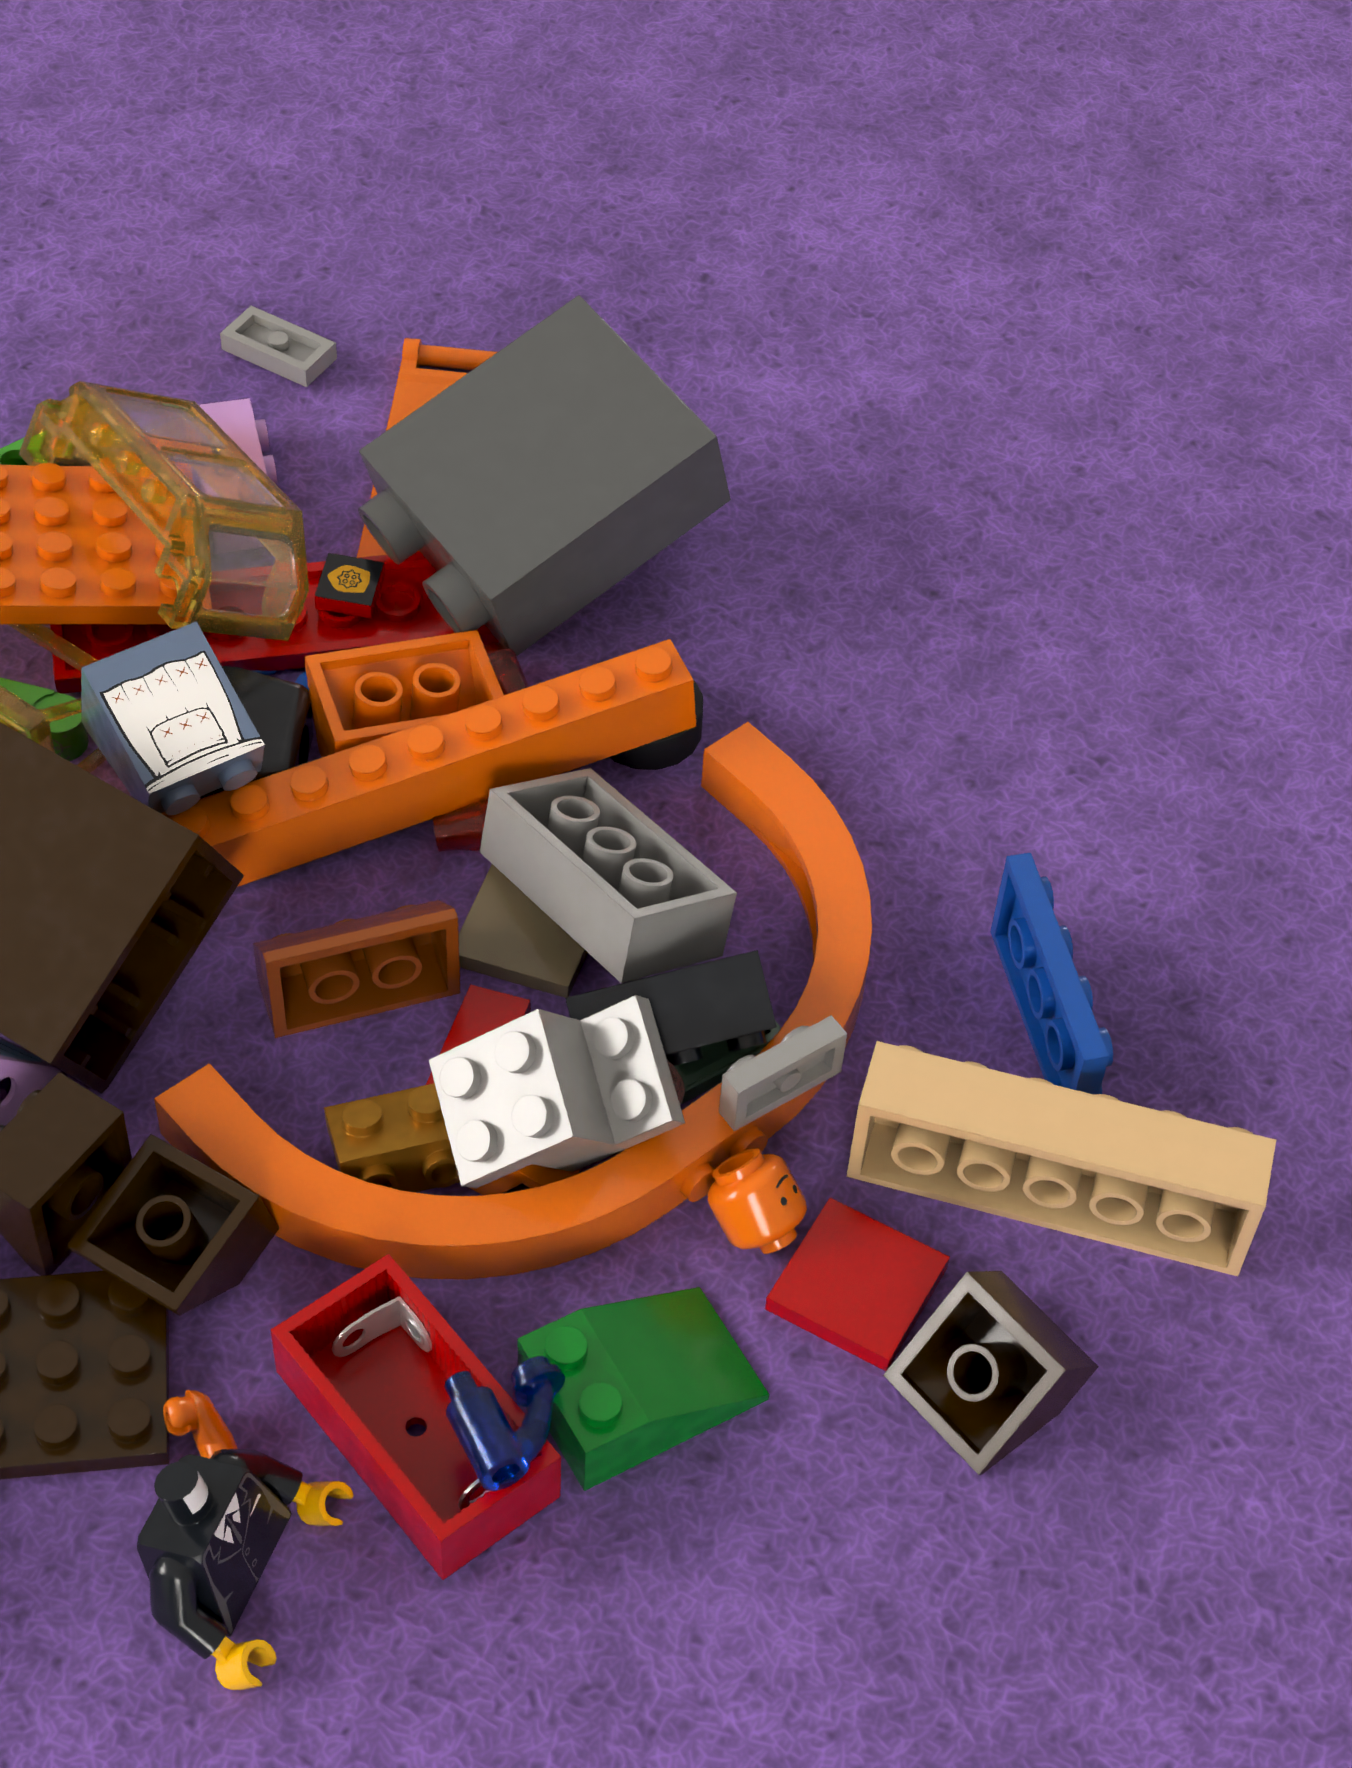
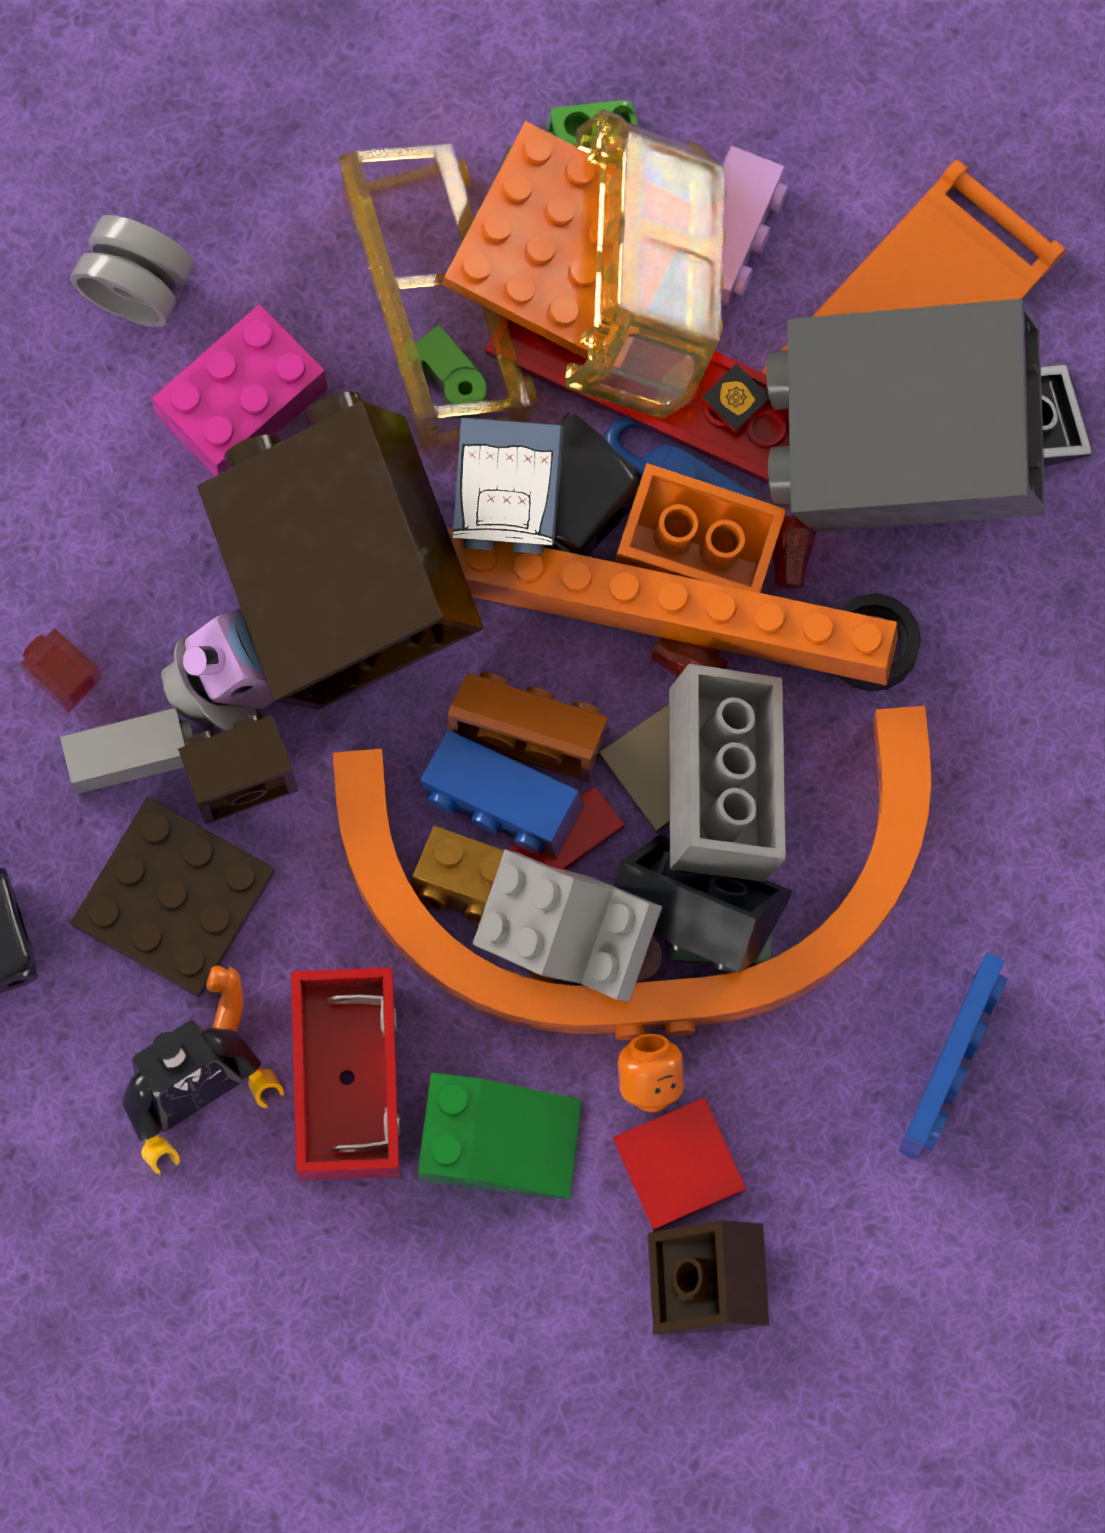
camera: 40 degrees right, 25 degrees up
(175, 1229) = (287, 855): dark brown slope -> none
(278, 346) = (855, 106): light grey plate -> none
(370, 1035) = (501, 794): none -> blue brick
(491, 1445) = (362, 1121): clear blue plant -> none
(782, 1072) = (741, 1004): light grey plate -> none
(1061, 1158) = (855, 1176): tan brick -> none

